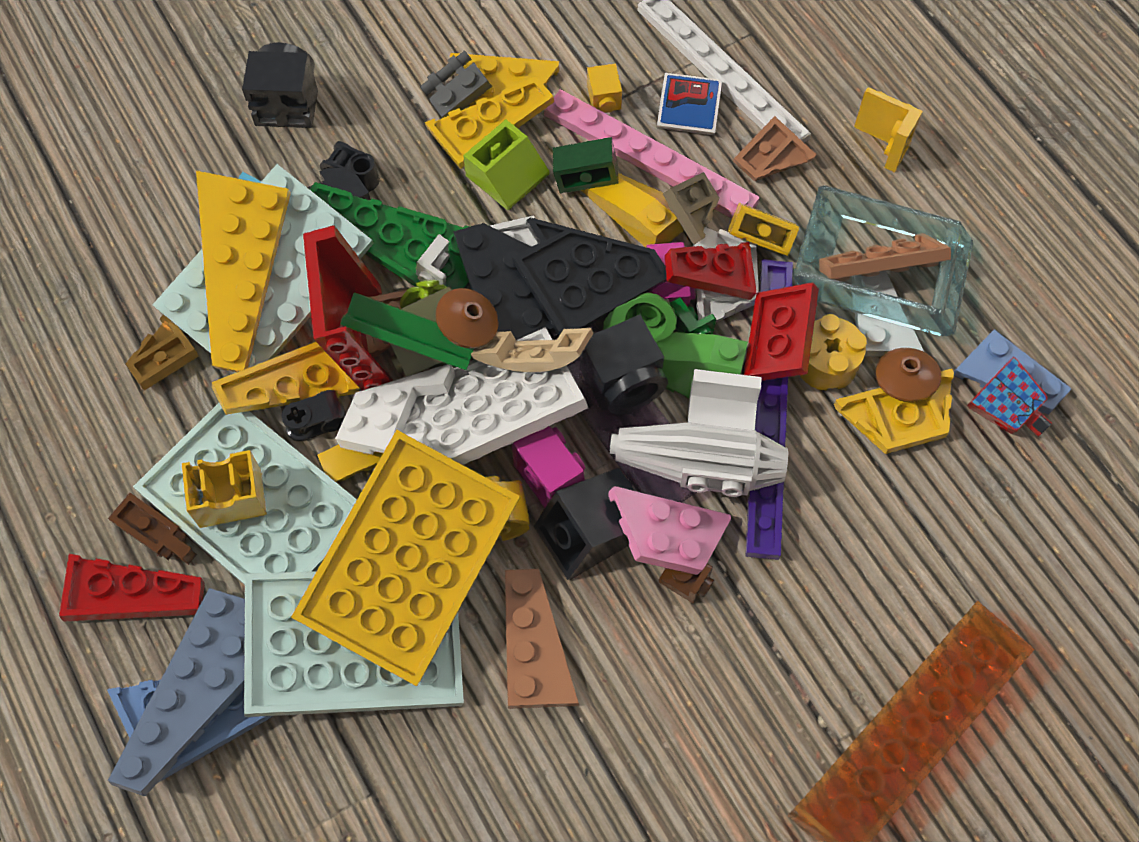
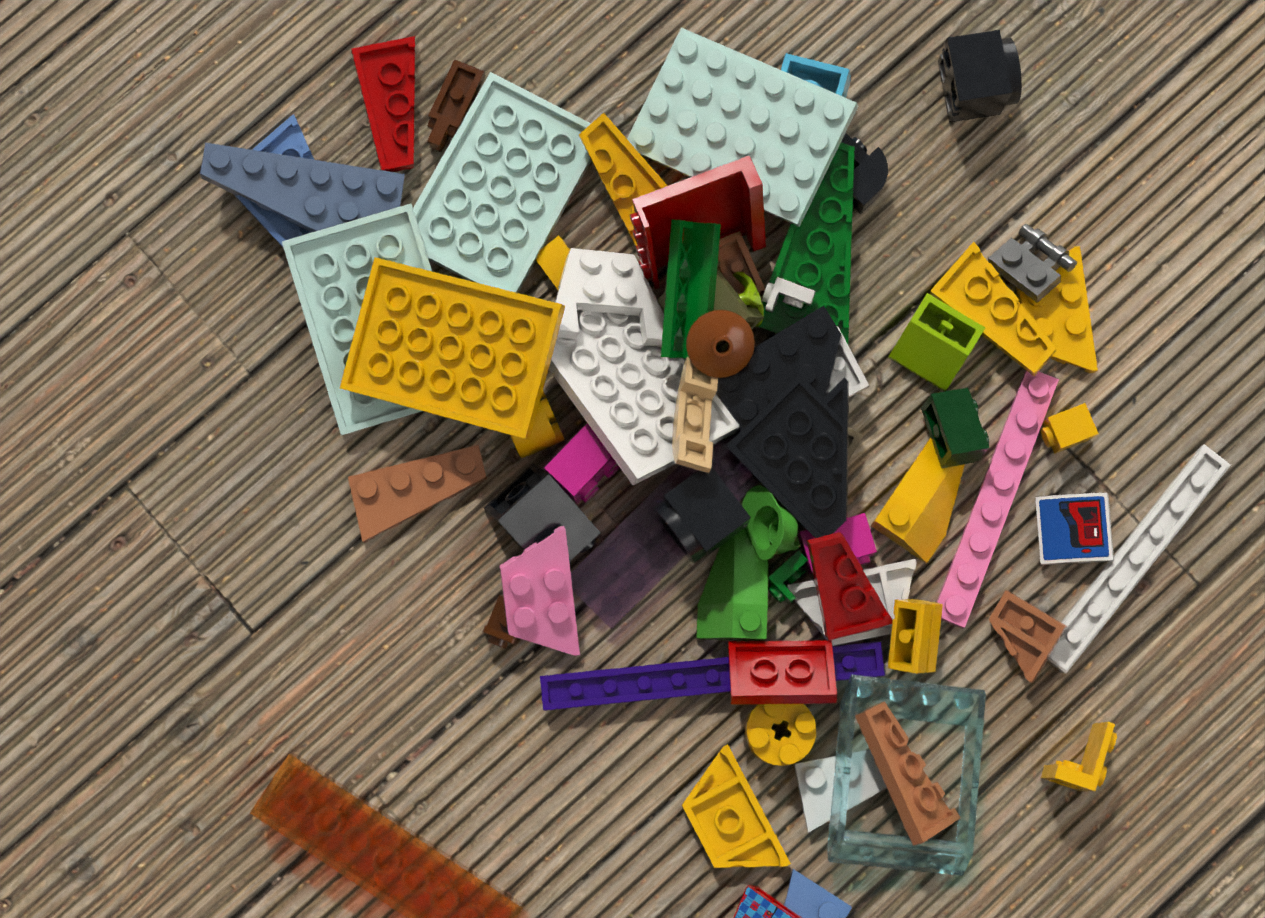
camera: 80 degrees right, 15 degrees up
(161, 354) = (635, 52): pearl gold wing -> none
(229, 490) = (494, 158): yellow piece -> none
(239, 246) = (757, 93): yellow wing -> none
(318, 415) = (603, 226): black piece -> none
(355, 161) = (902, 174): black piece -> none
(693, 205) = (926, 553): dark tan wing -> none
(716, 445) = (633, 622): white piece -> none
(905, 383) = (756, 819): dark orange dish -> none

